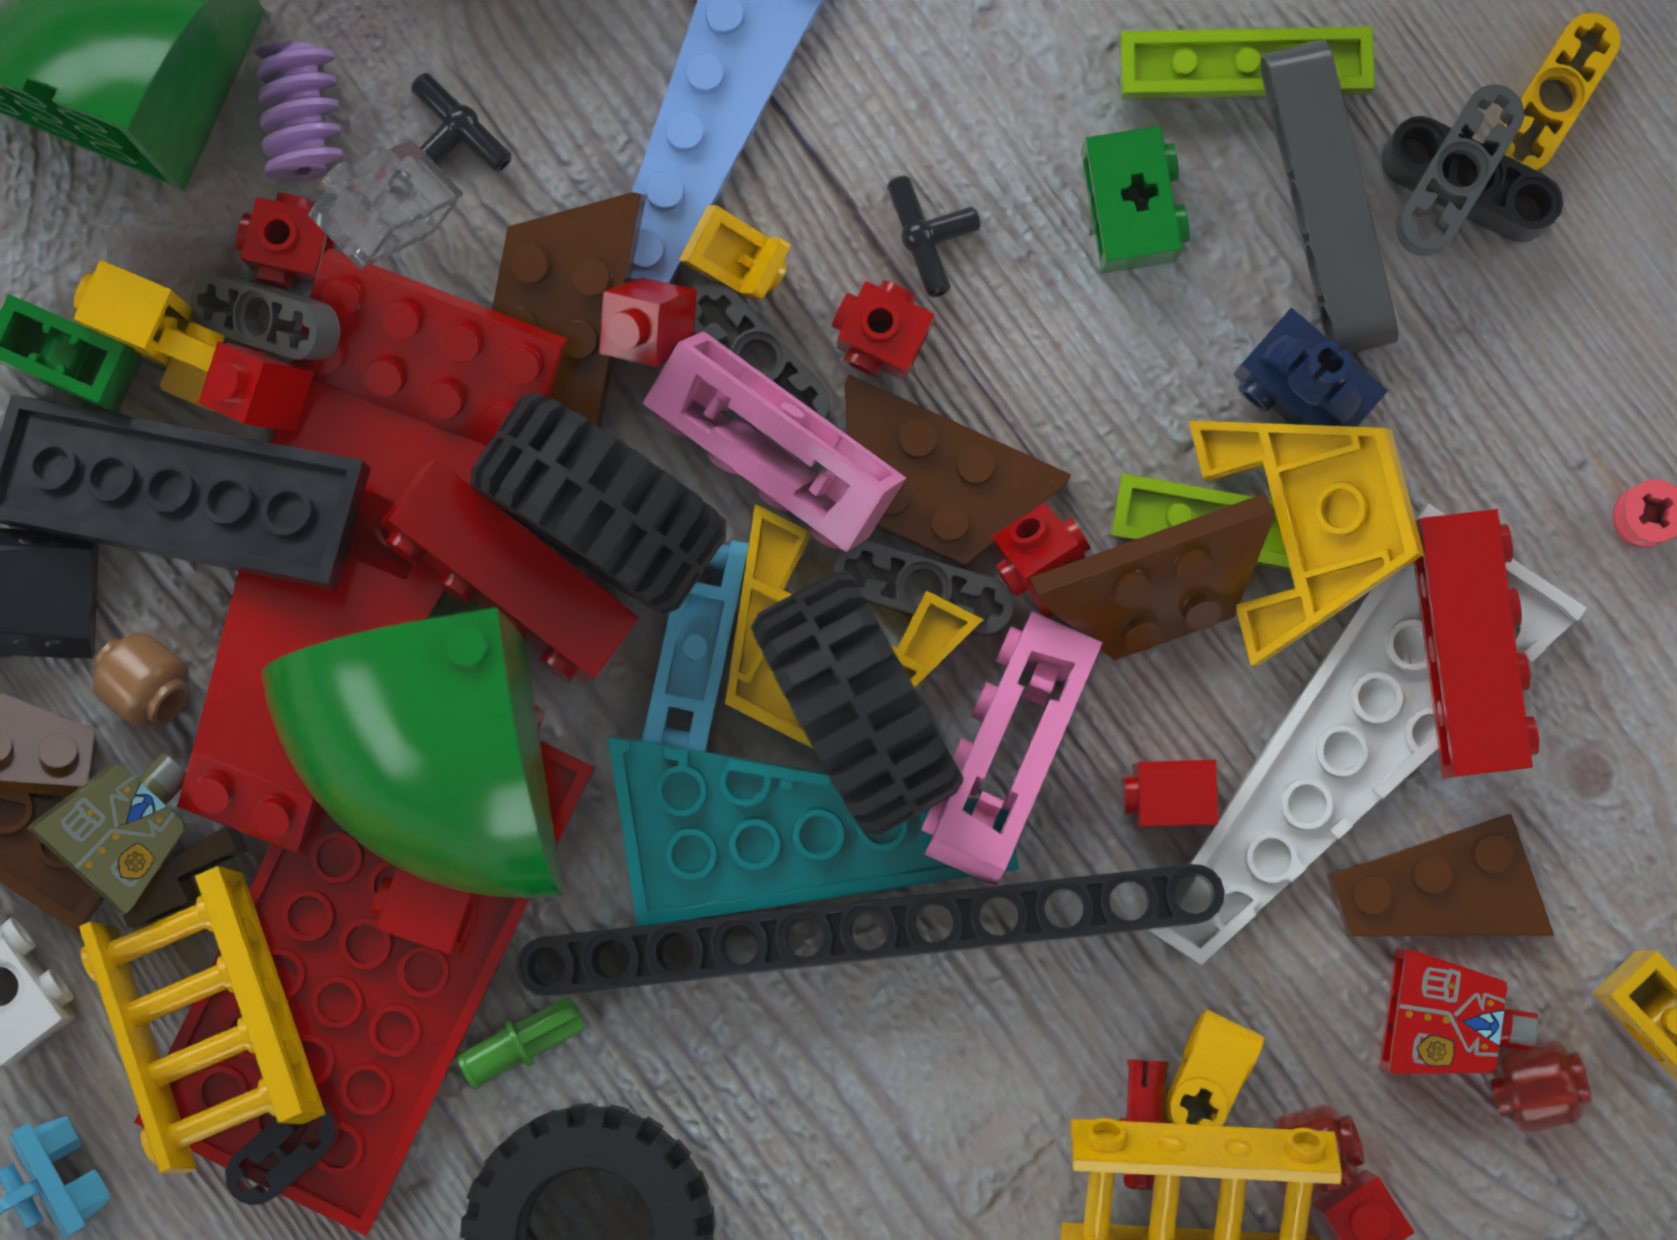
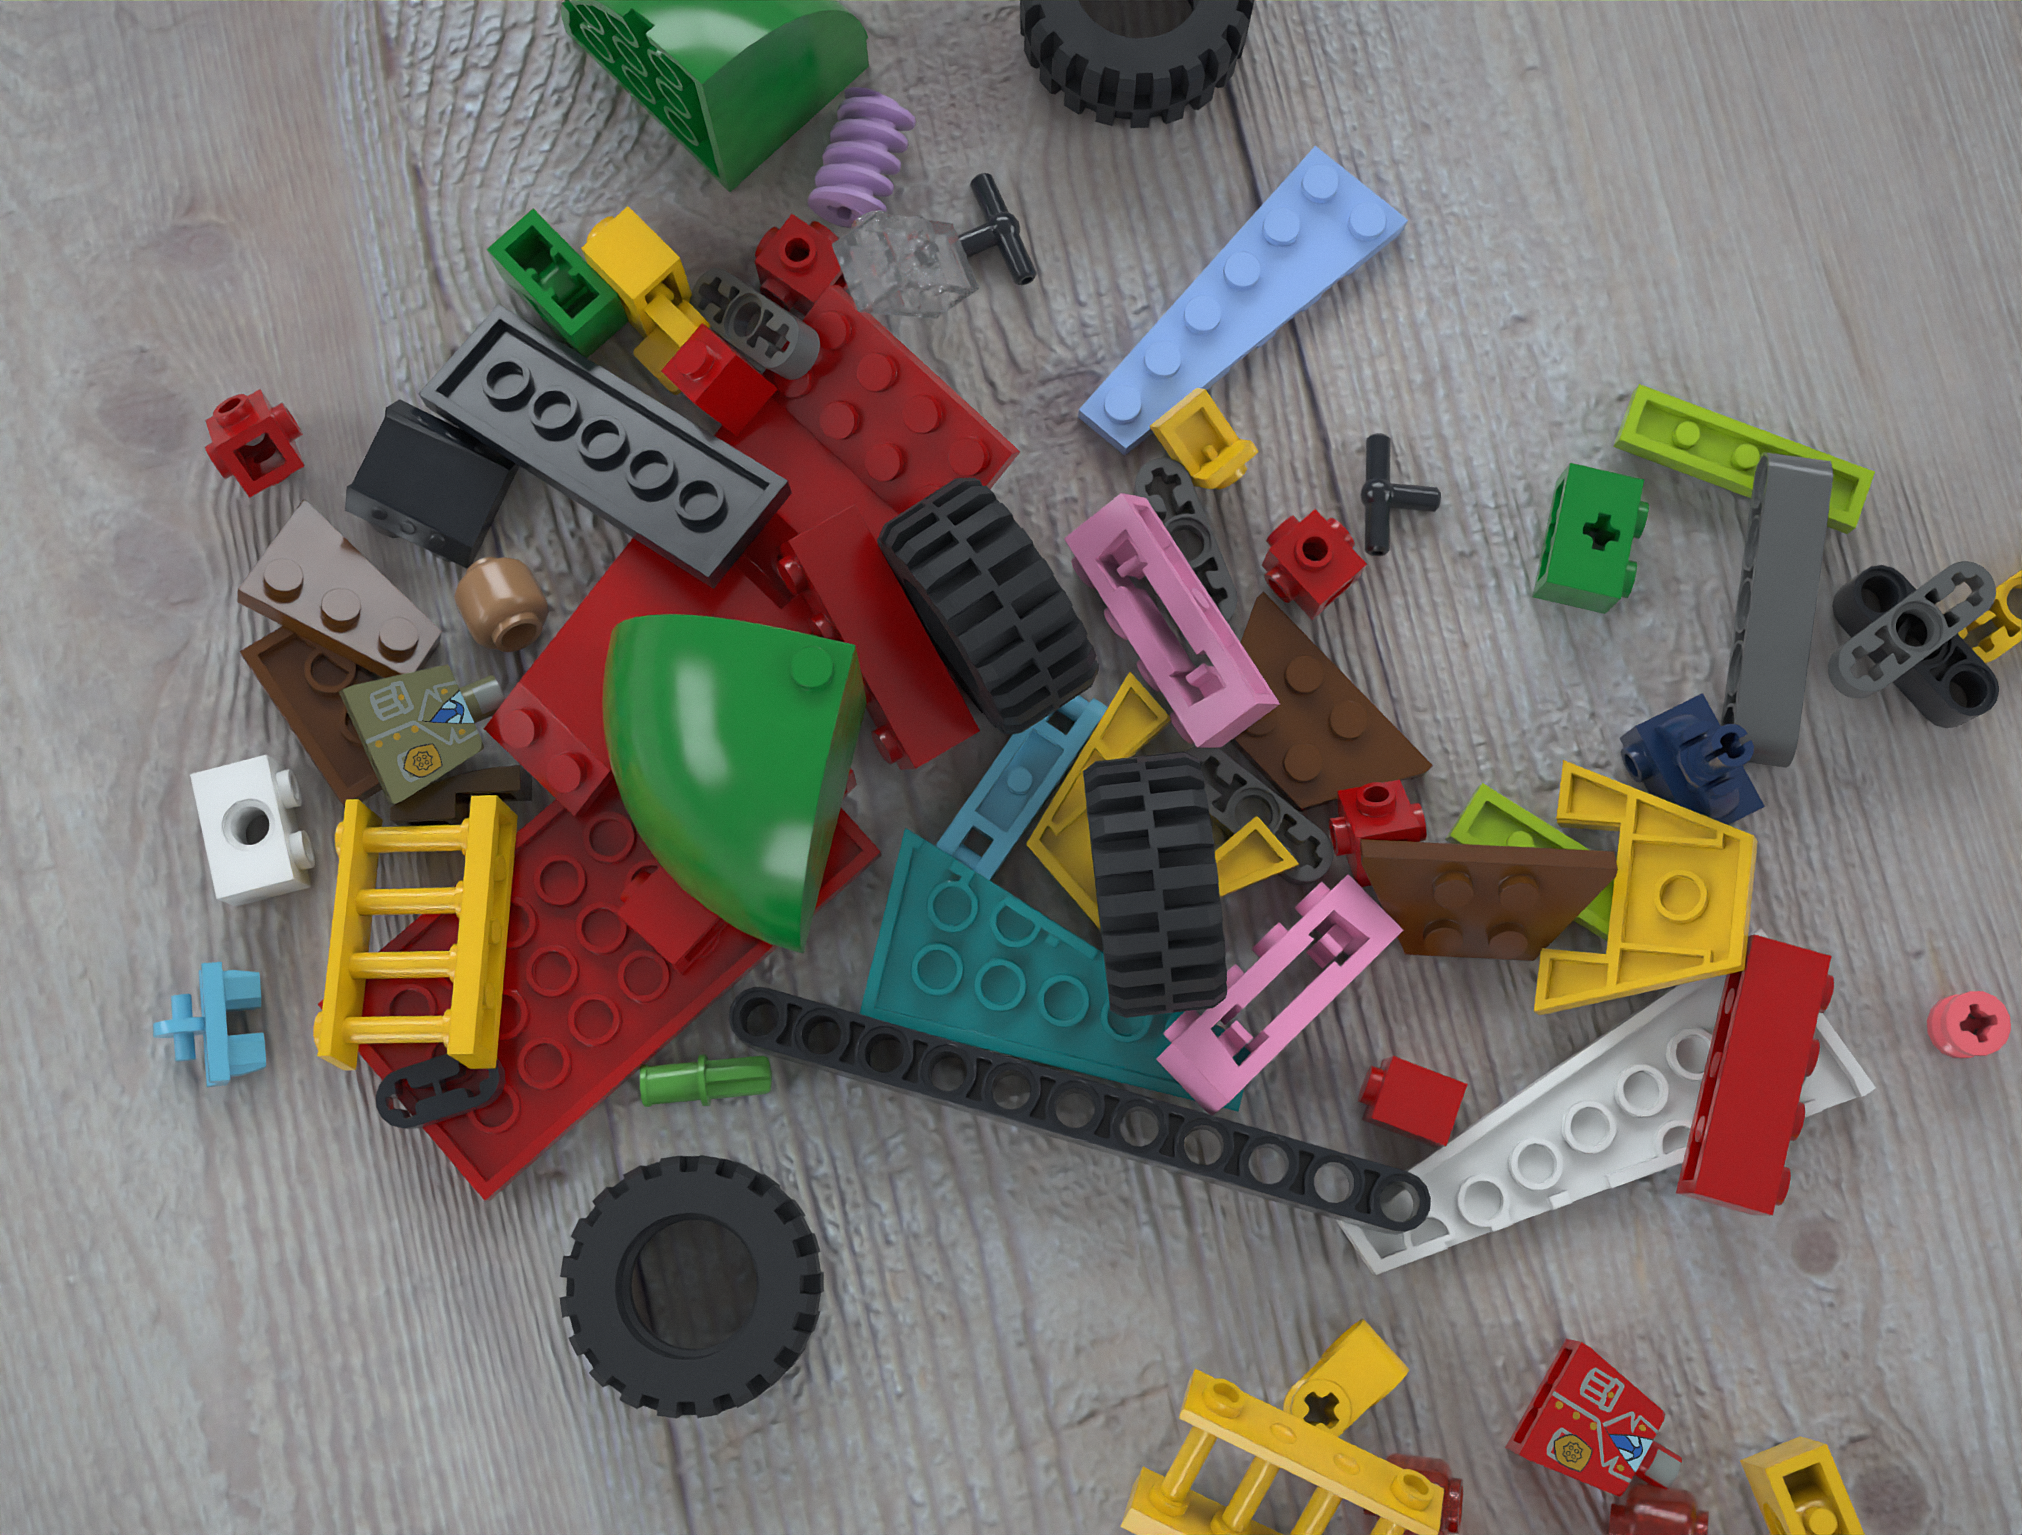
camera: 20 degrees right, 5 degrees down
(556, 281) = (1047, 403): reddish brown wing -> none
(646, 320) = (1098, 464): red brick -> none
(1145, 1105) = (1269, 1386): red axle -> none
(1445, 886) = (1639, 1298): reddish brown wing -> none

